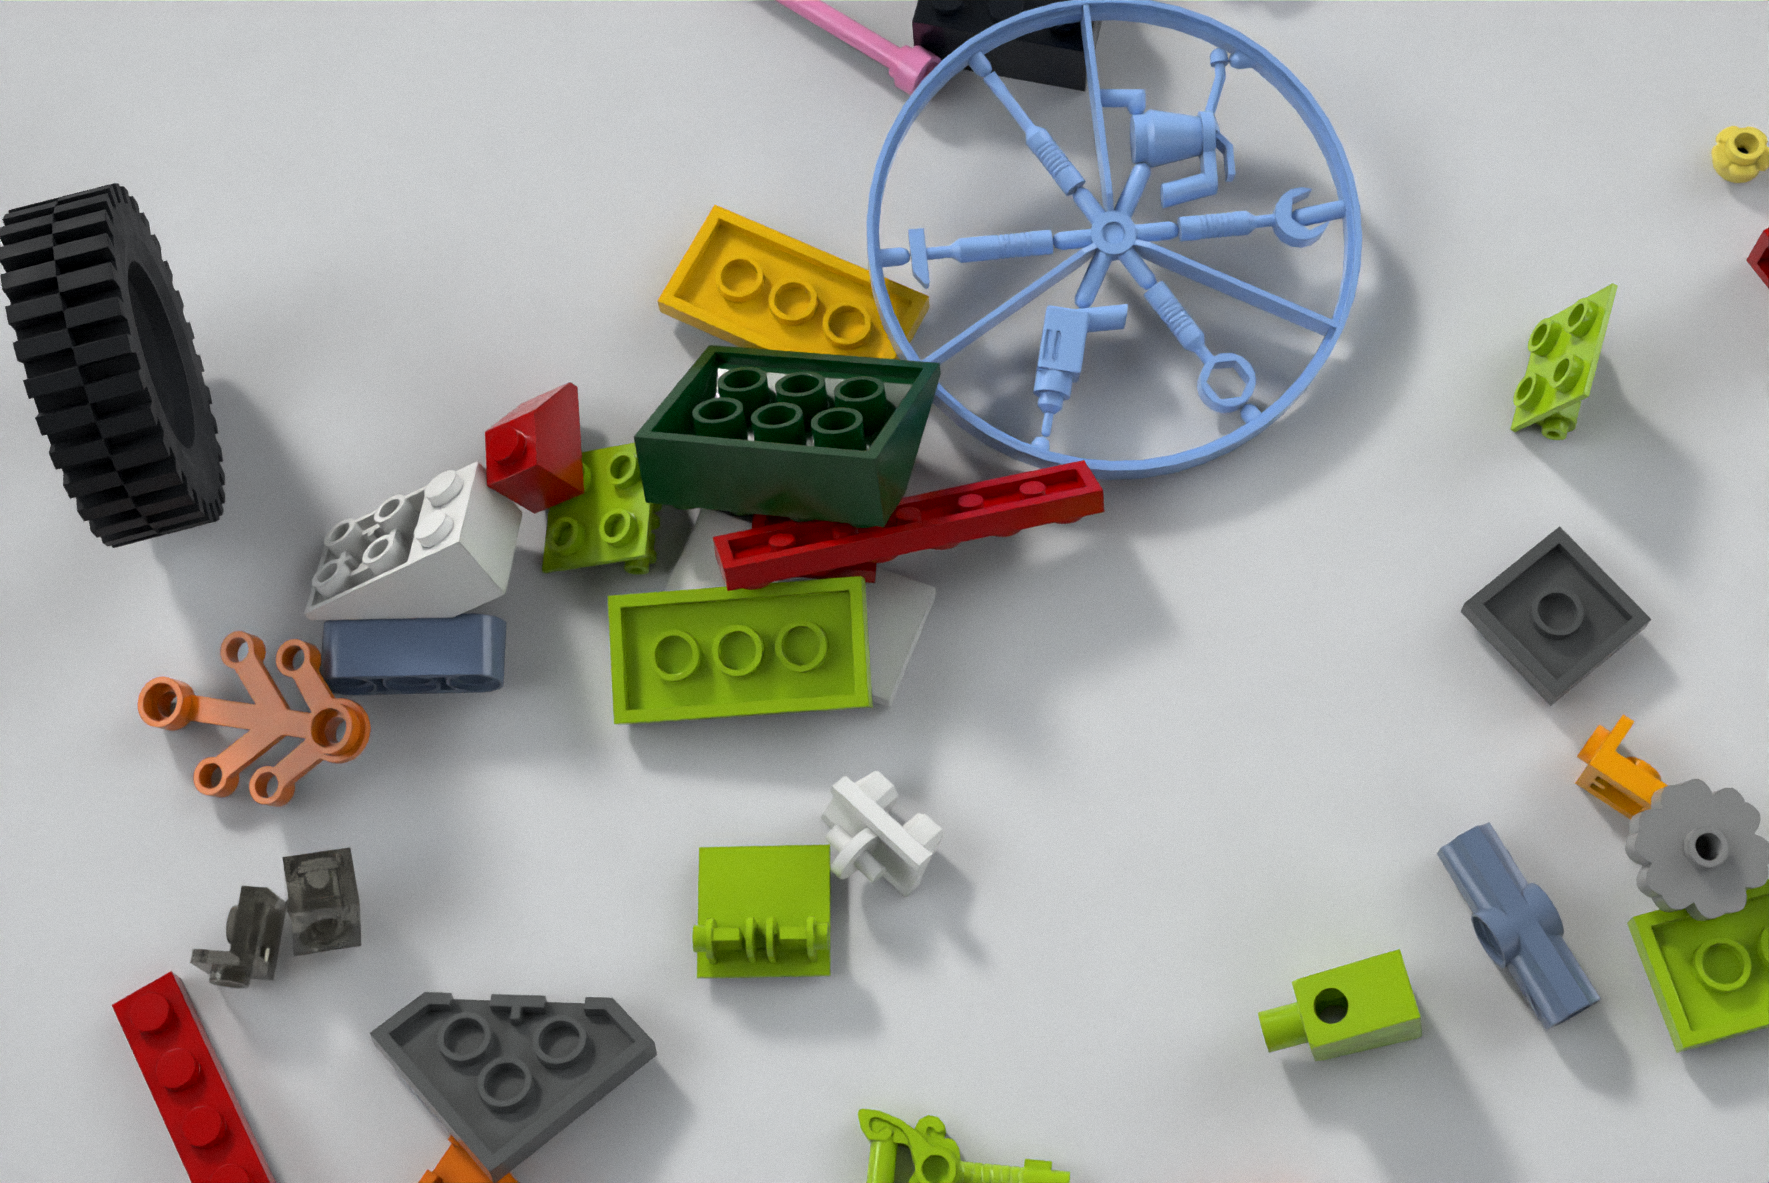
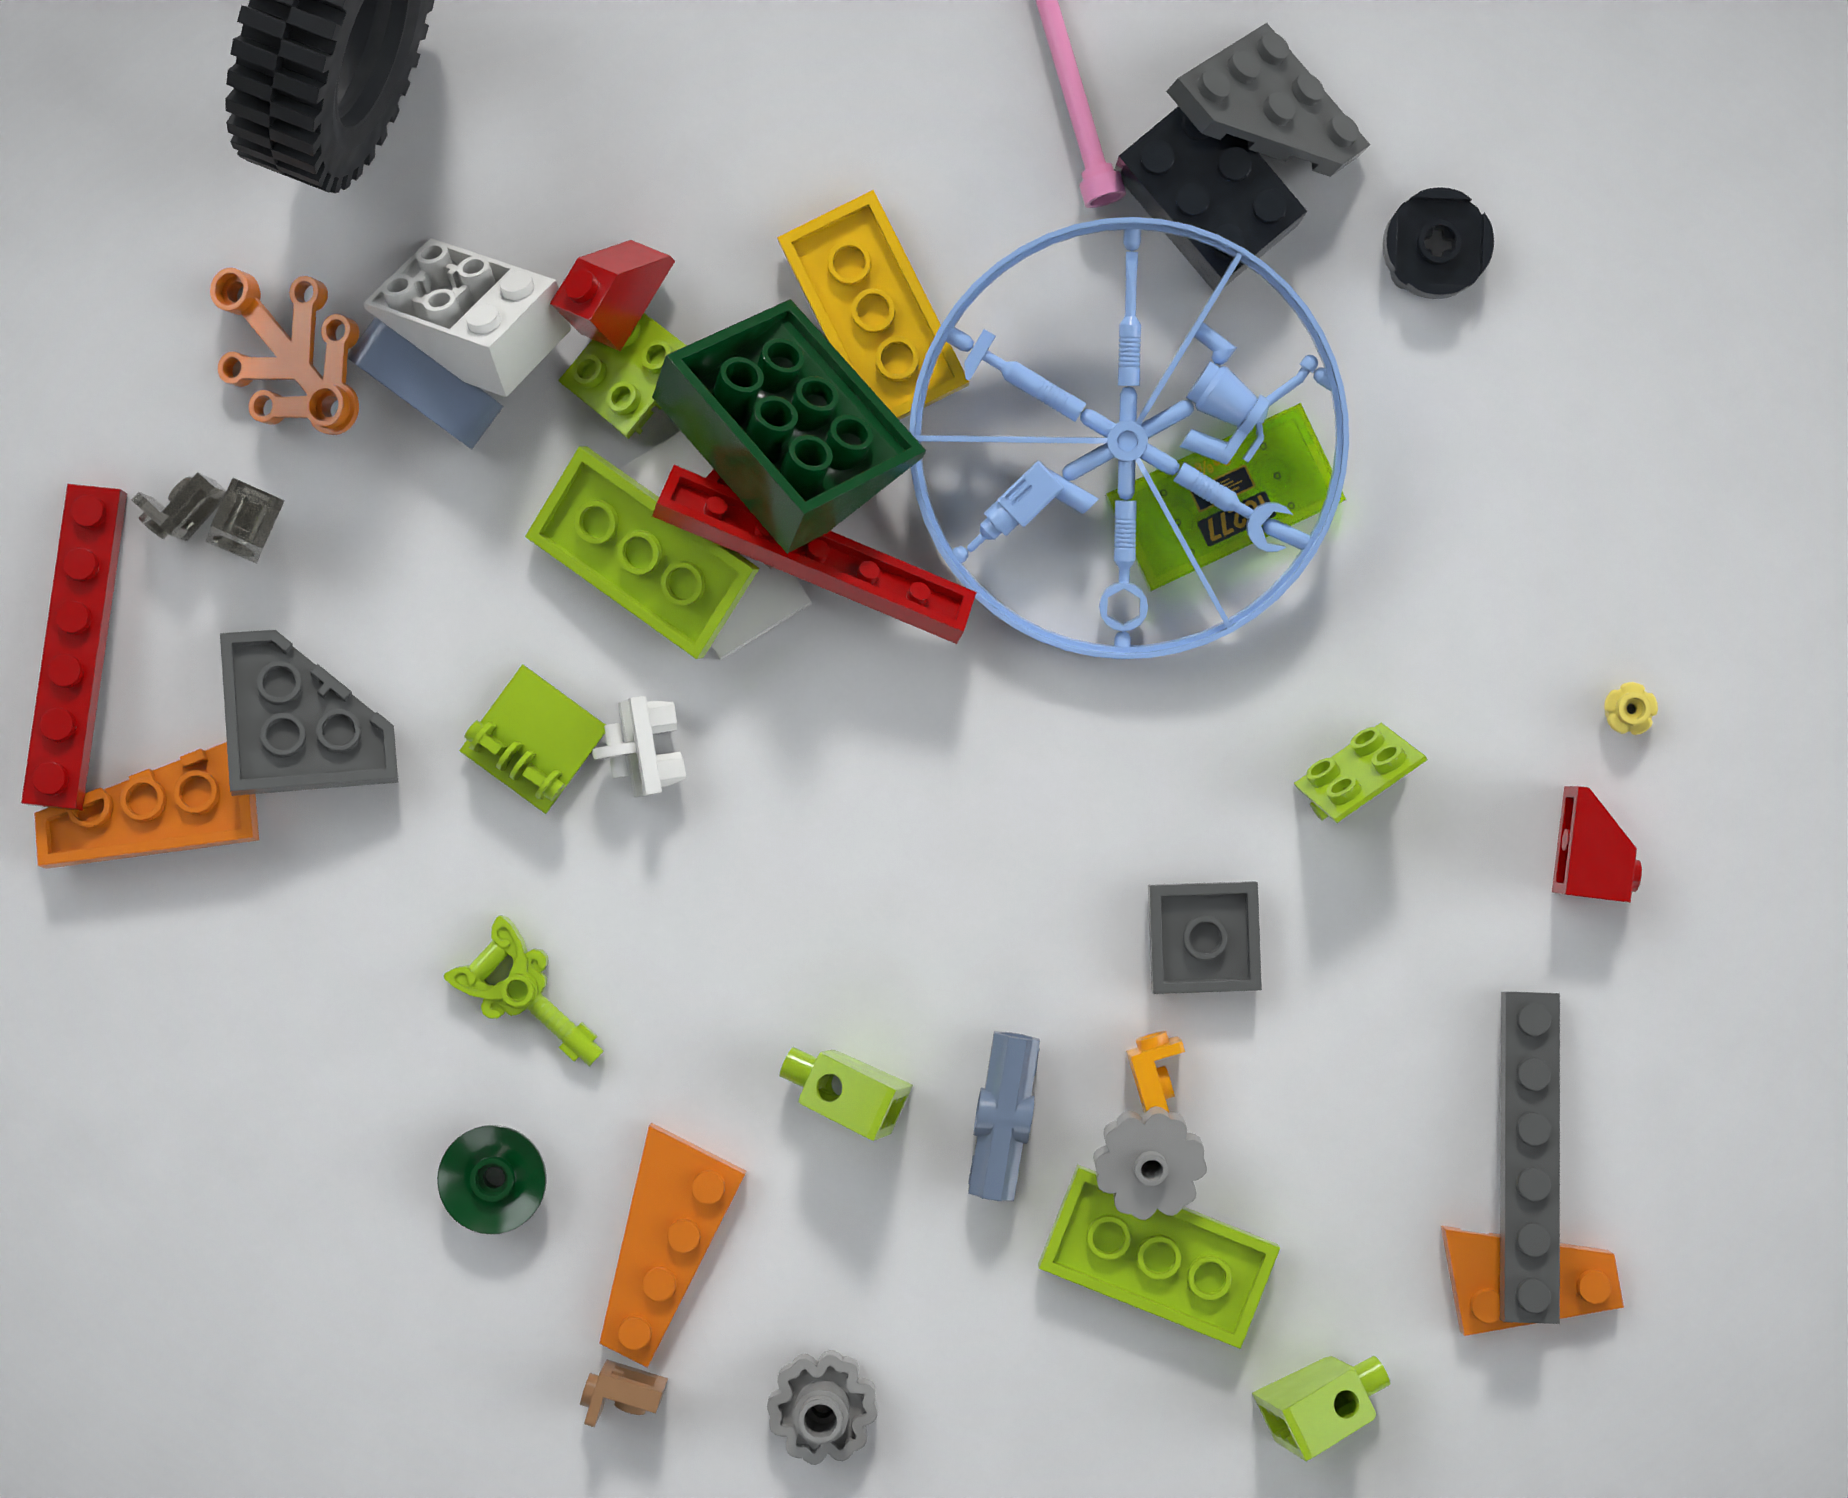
camera: 30 degrees right, 20 degrees up
(1264, 170) = (1283, 470): none -> clear neon green tile

